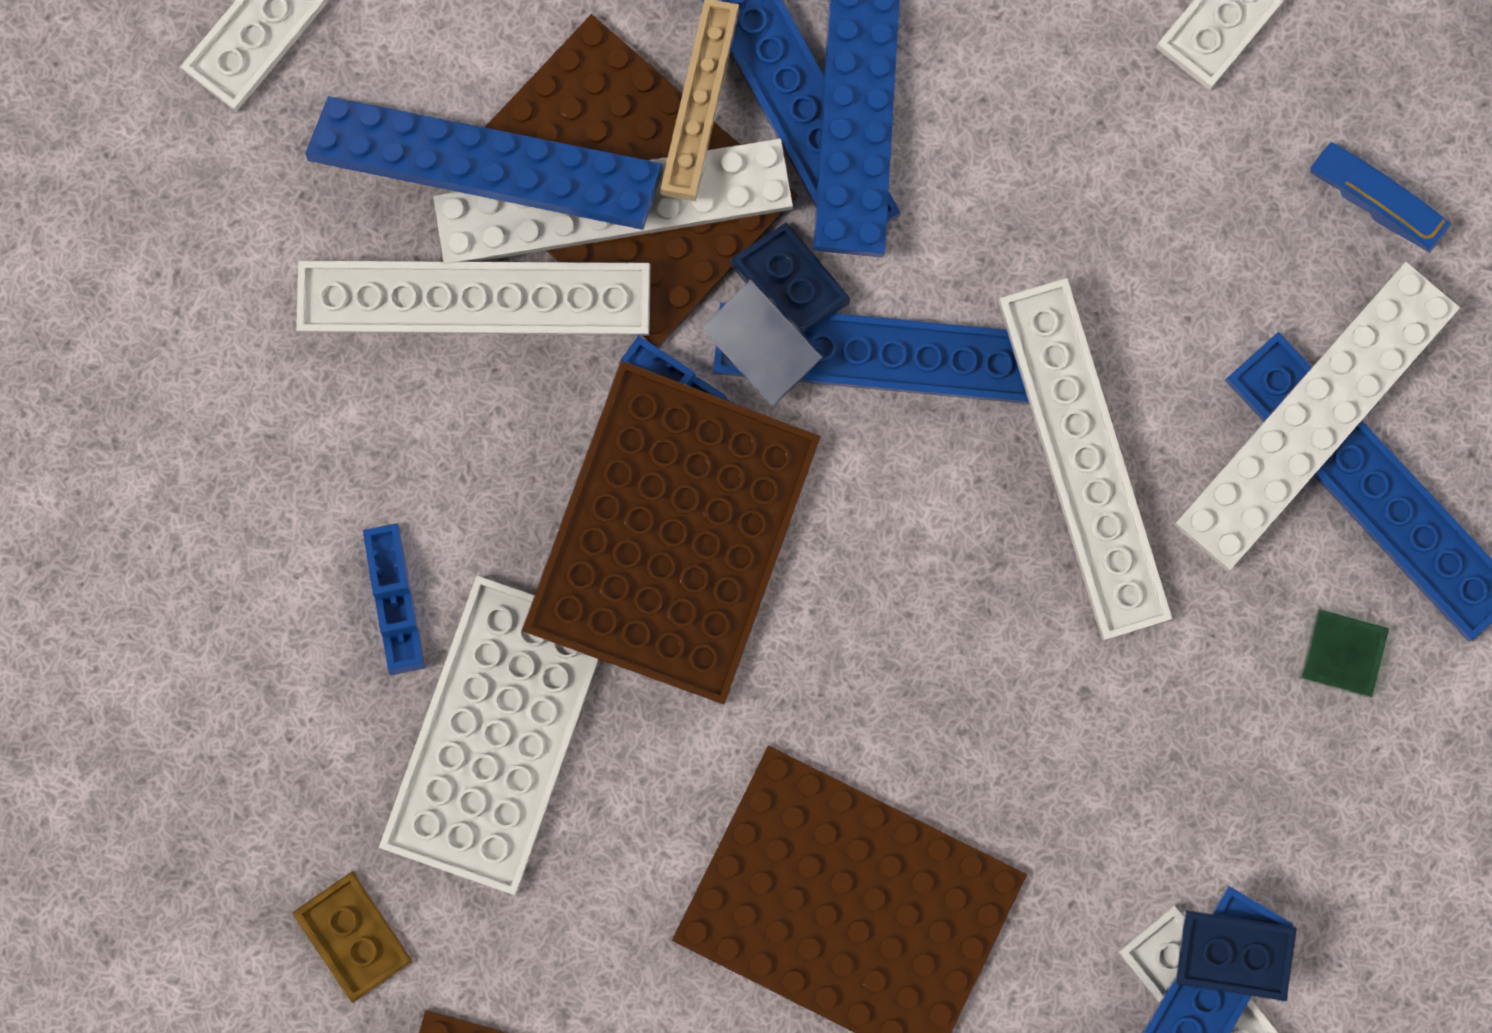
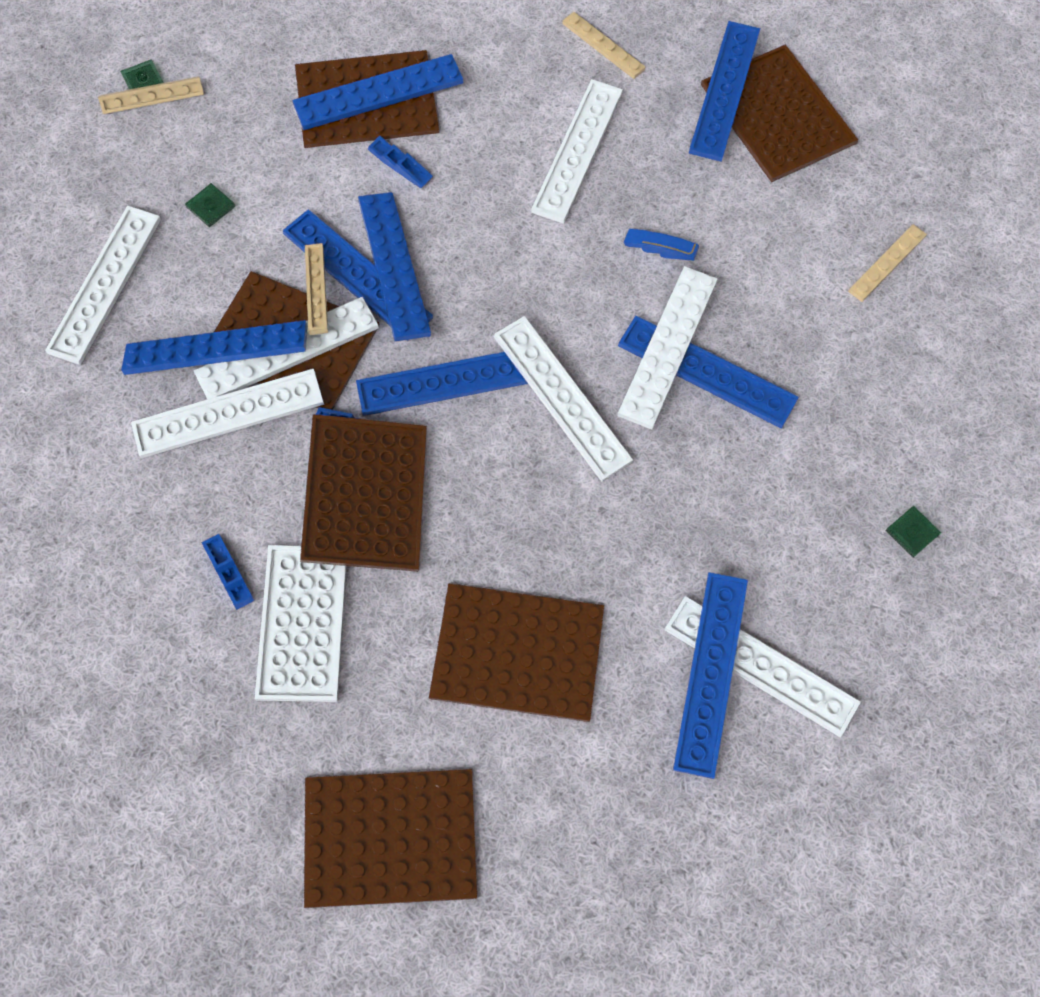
camera: 20 degrees left, 15 degrees down
(352, 936) = (253, 752): pearl gold tile -> none
(763, 342) = (383, 389): tile -> none
(791, 277) = (388, 360): dark blue tile -> none
(1235, 955) = (724, 604): dark blue tile -> none
(1344, 653) = (723, 451): clear green plate -> none

